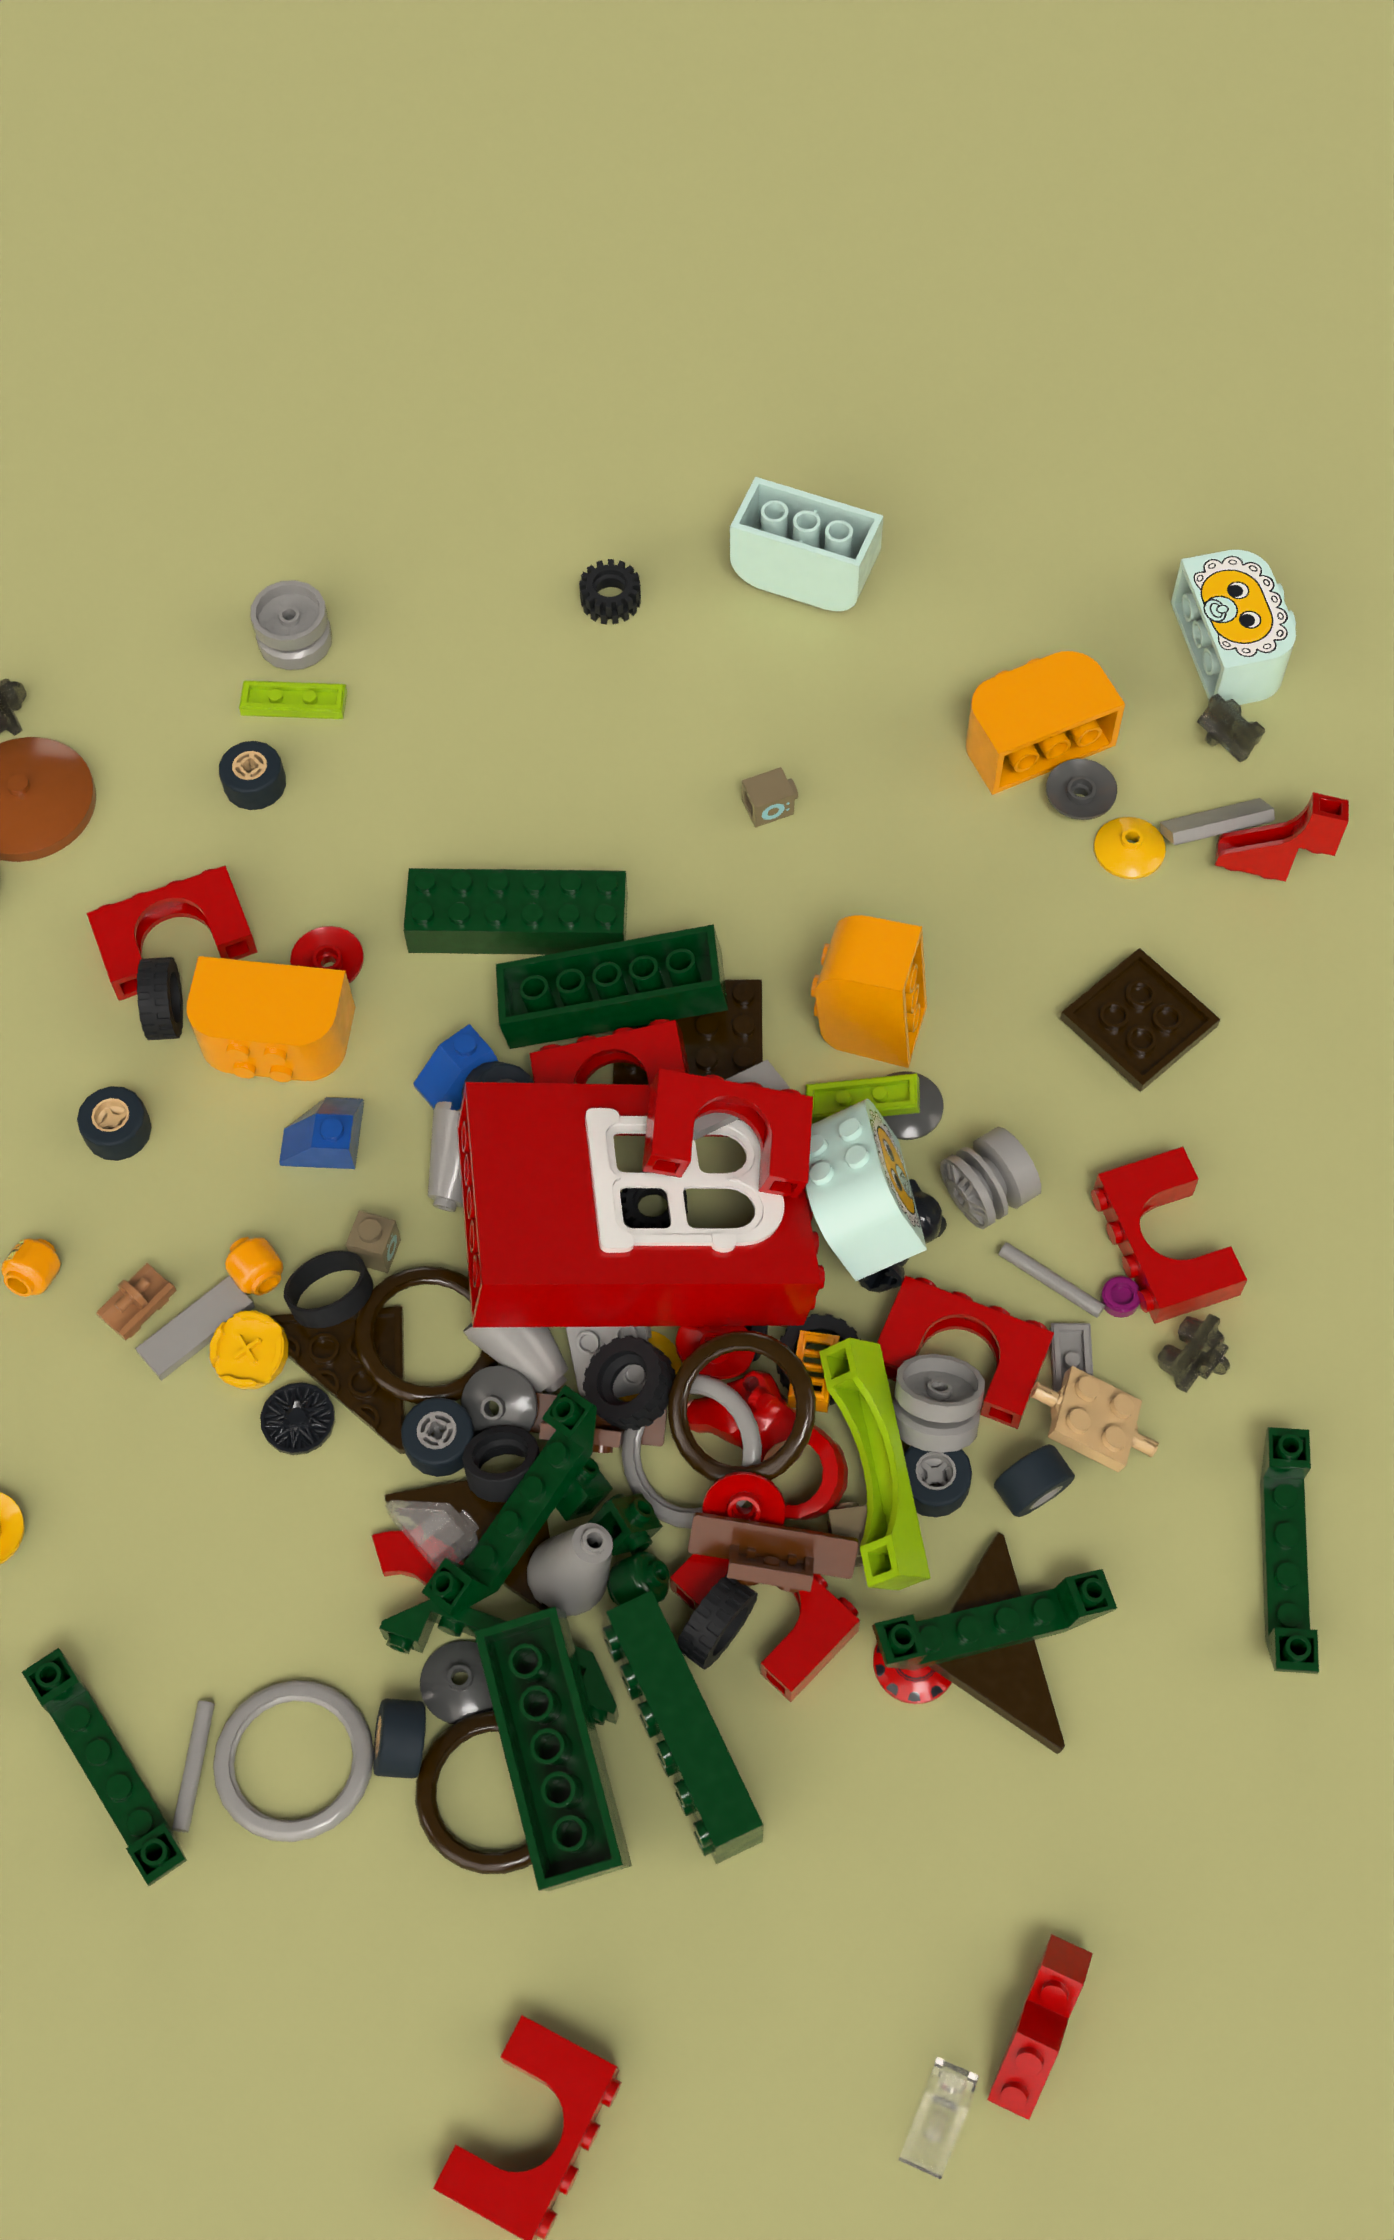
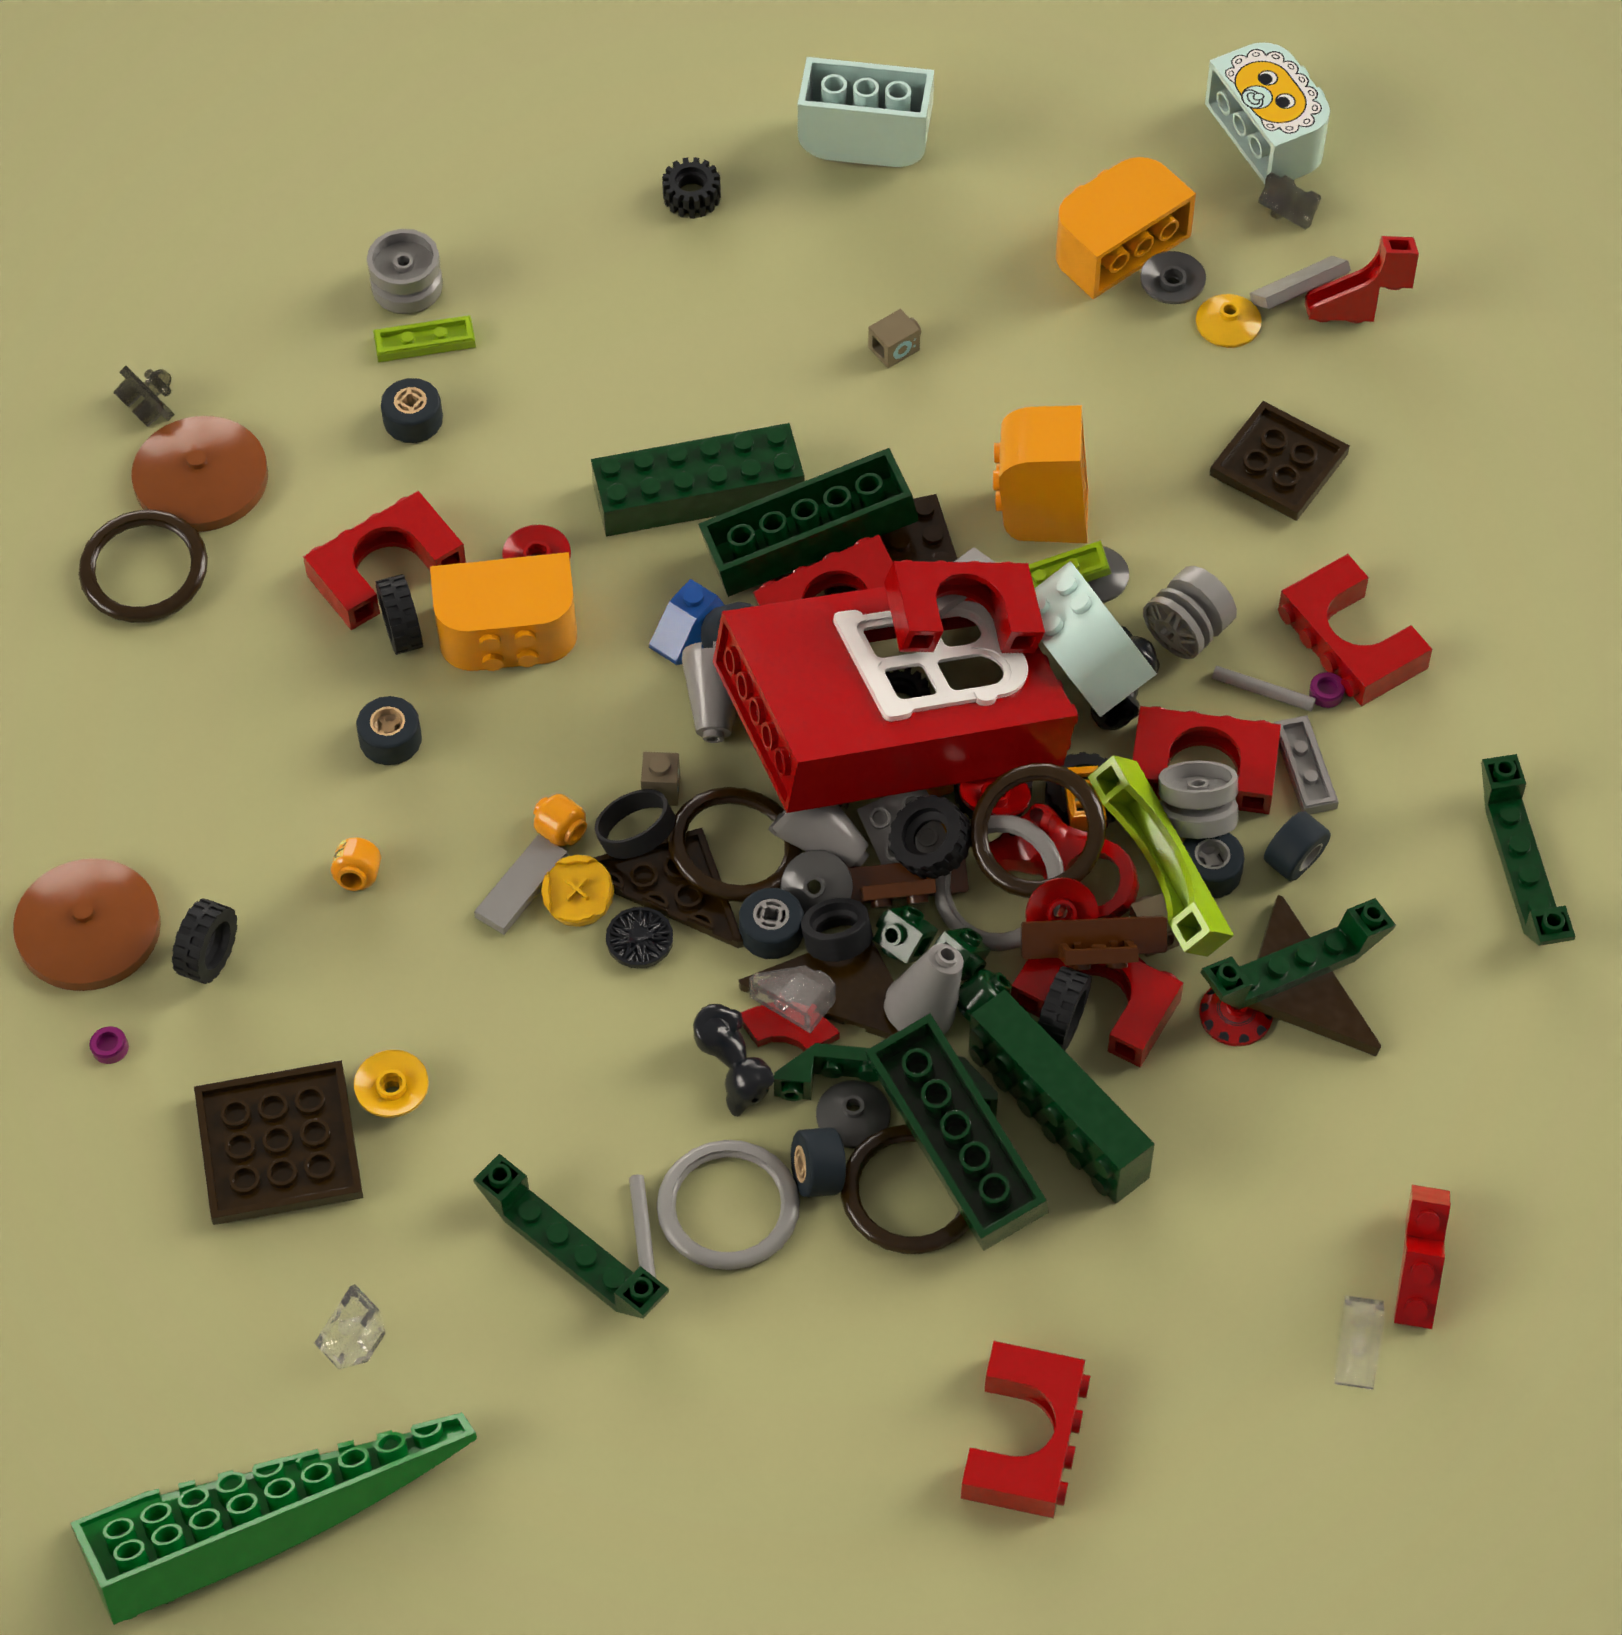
camera: 15 degrees left, 5 degrees down
(136, 1301) = (463, 871): medium nougat hips -> none
(324, 1135) = (583, 704): blue slope -> none
(337, 1561) = (718, 1035): none -> black animal
(525, 1512) = (898, 873): dark green slope -> none
(1094, 1419) = (1334, 786): tan plate -> none
(1201, 1354) = (1409, 718): clear smoke hips -> none

